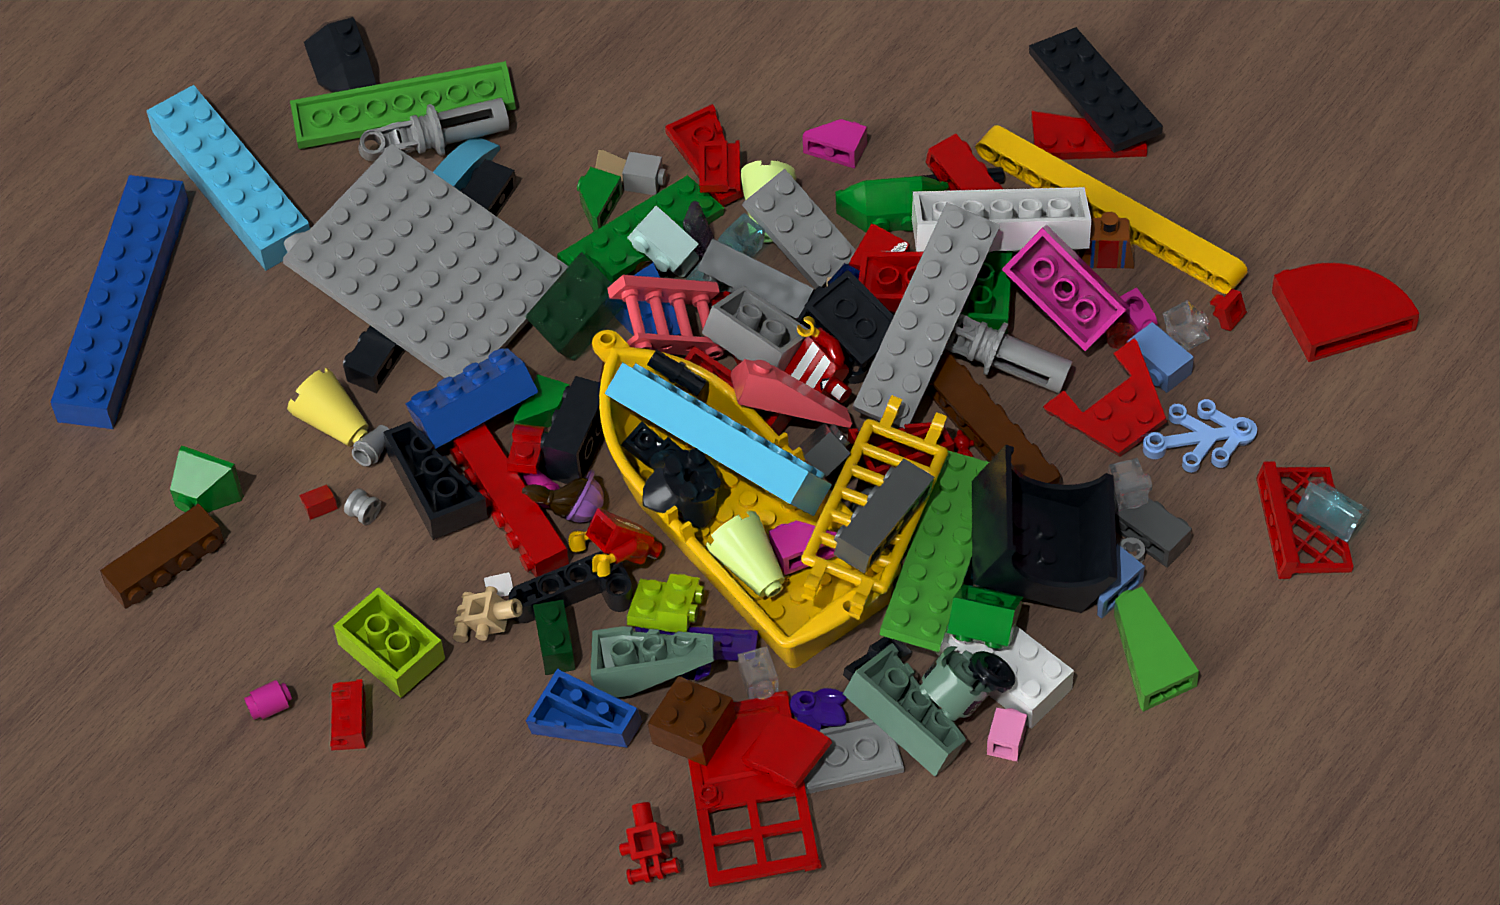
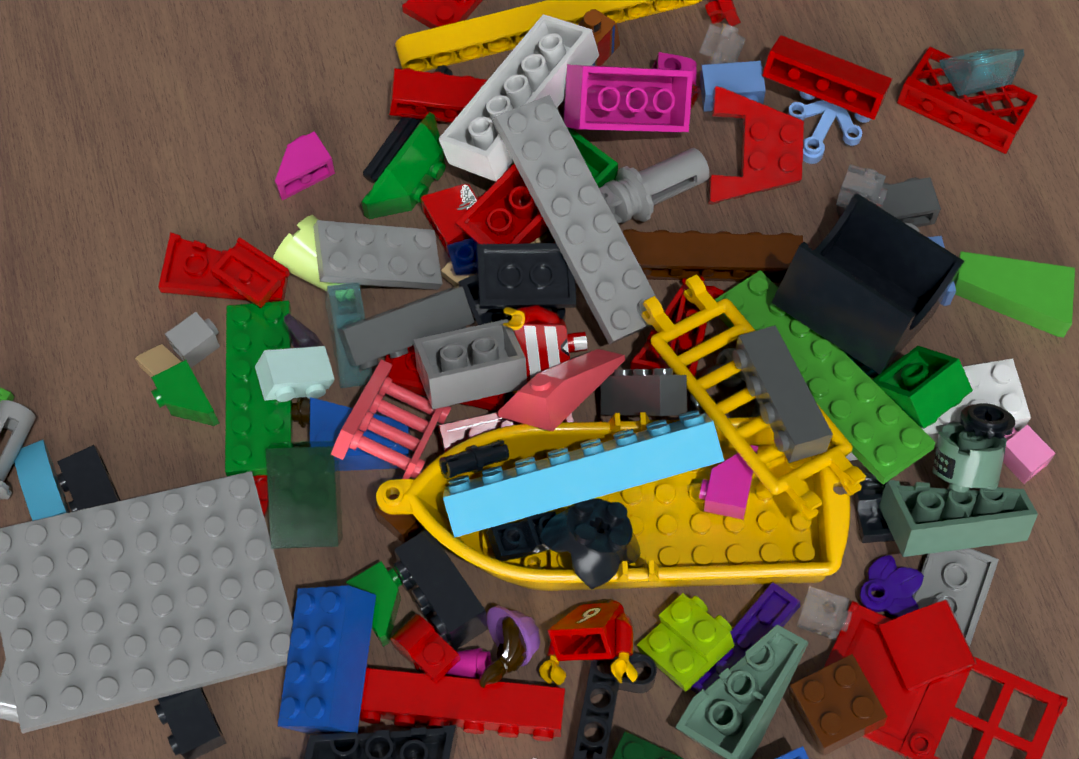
camera: 55 degrees left, 10 degrees up
(748, 554) = (714, 534): yellowish green cone -> none
(1216, 406) = (827, 77): none -> red brick

